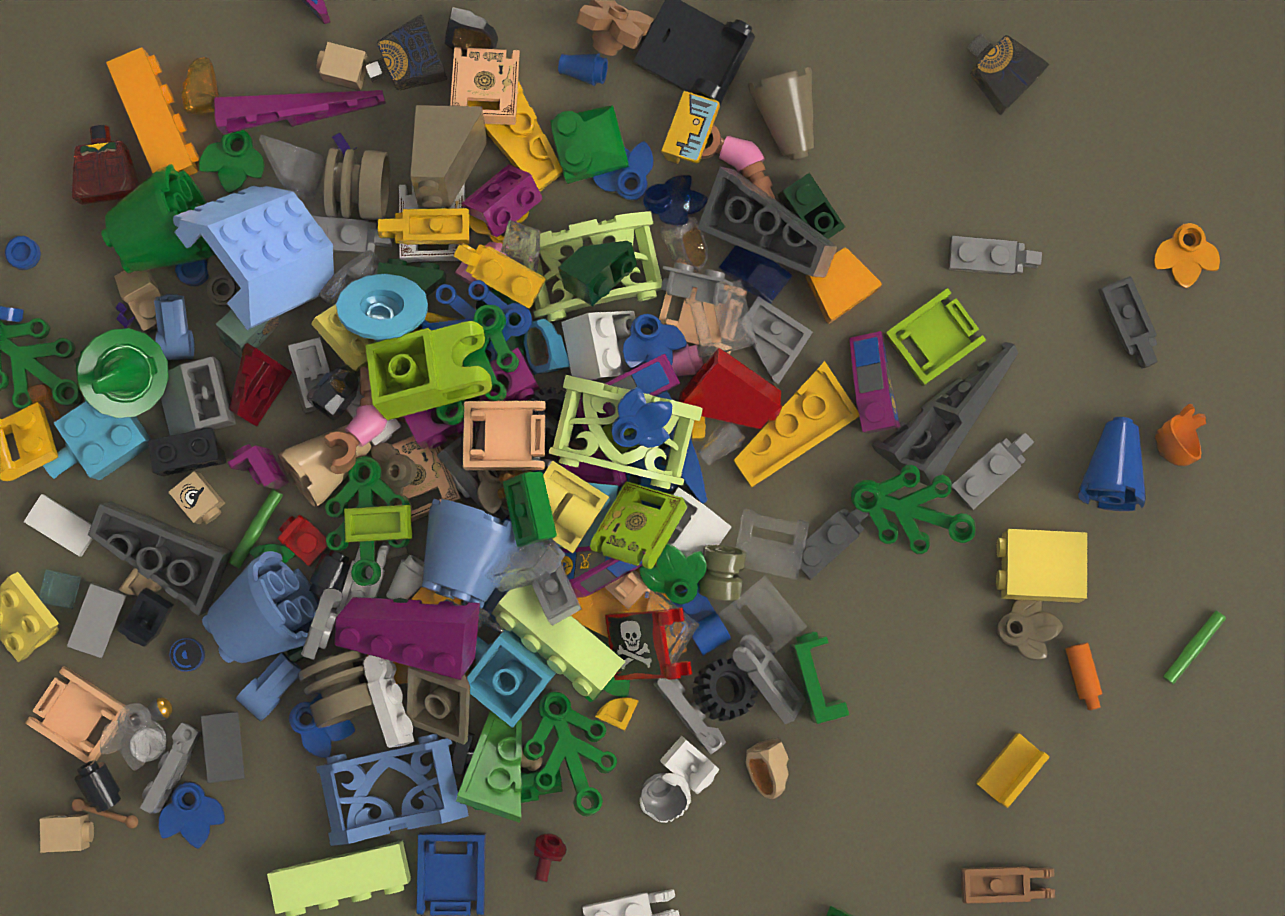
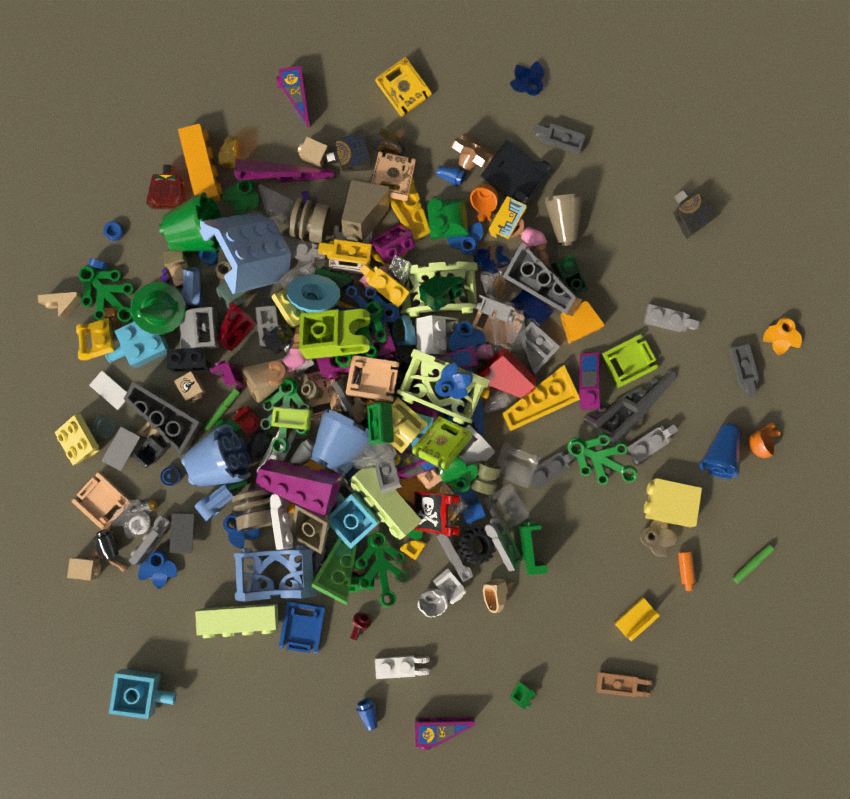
camera: 10 degrees right, 0 degrees up
(322, 622) = (250, 470): light grey hinge -> none
(648, 103) = (484, 200): none -> orange piece

